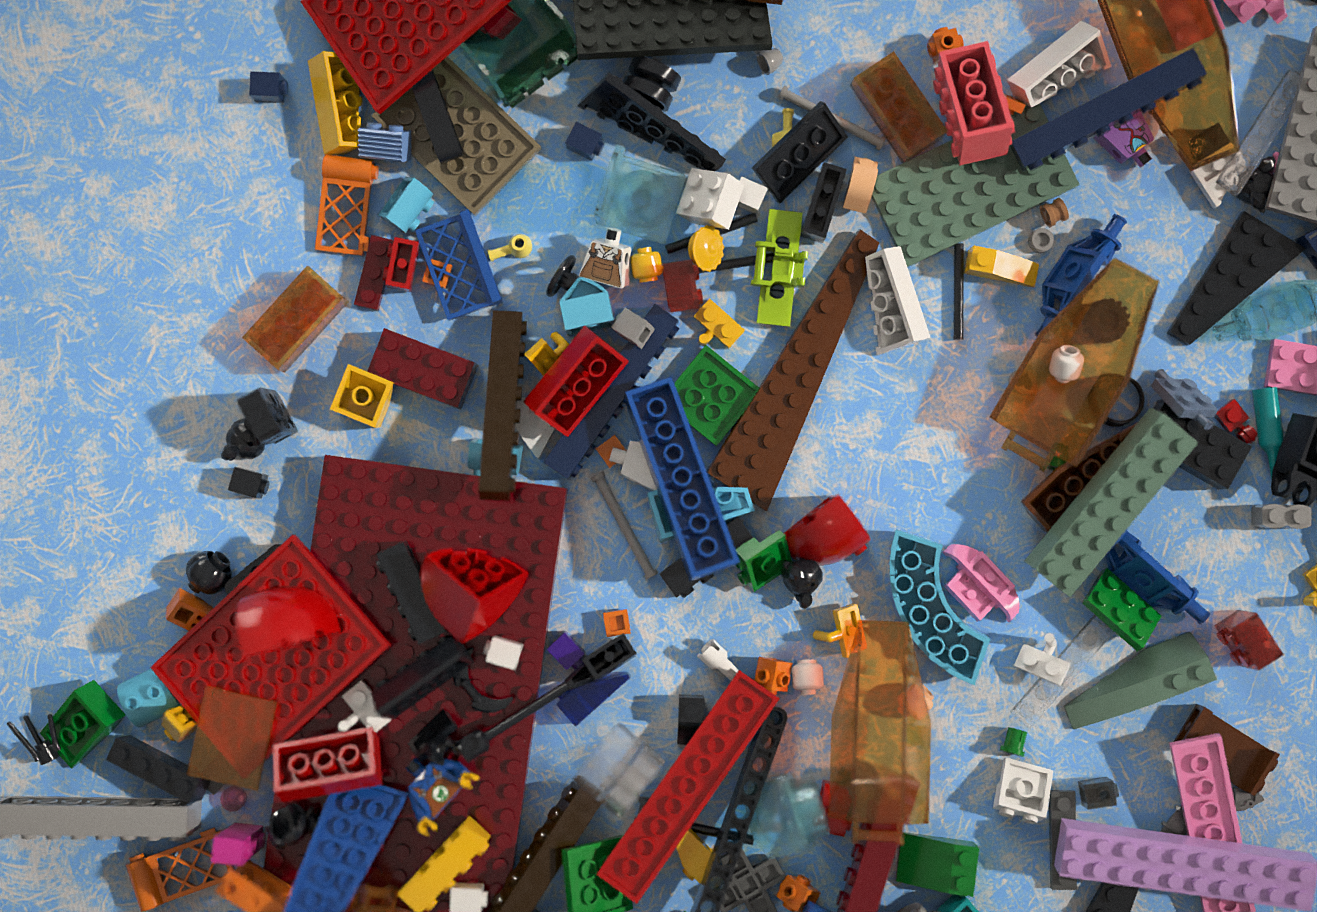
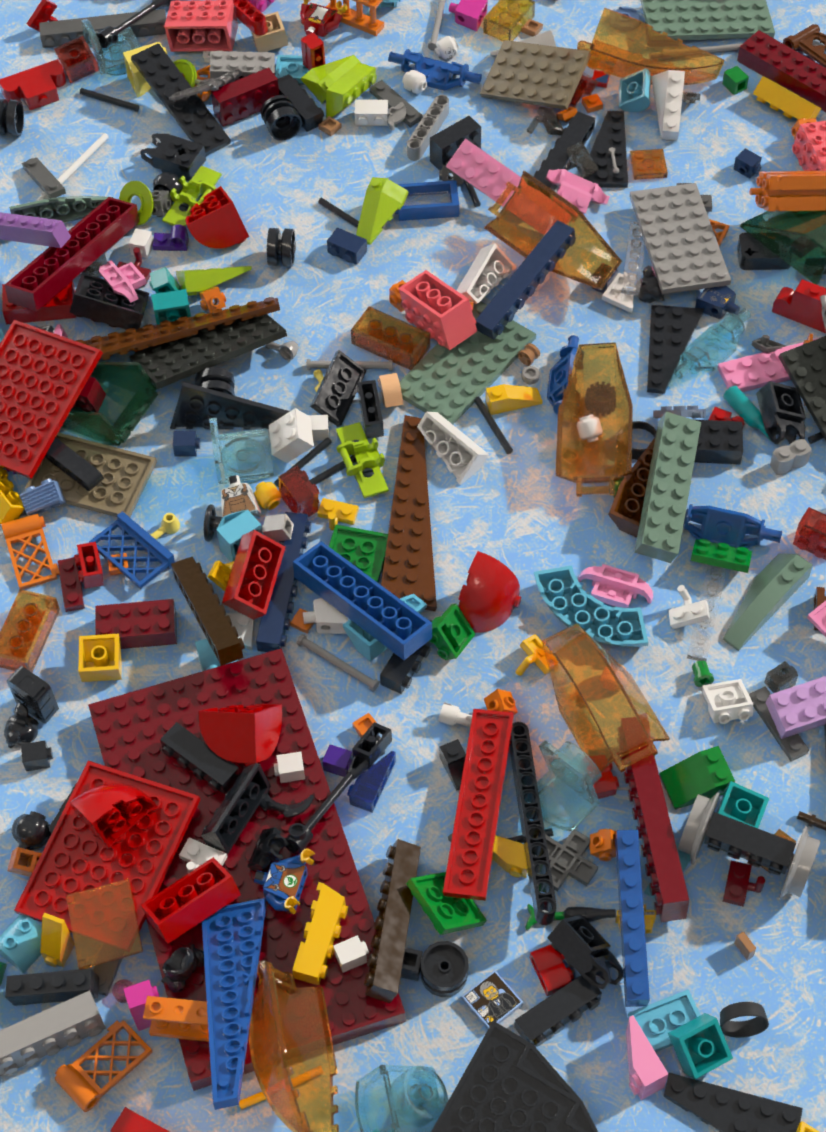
camera: 25 degrees left, 30 degrees down
(406, 204) = (76, 527): medium azure brick -> none
(618, 770) = (419, 812): clear brick -> none
(706, 248) = (305, 463): yellow piece -> none
(802, 579) = (485, 634): black hair -> none
(807, 677) = (527, 697): head -> none
(1128, 140) = (550, 297): medium lavender torso -> none

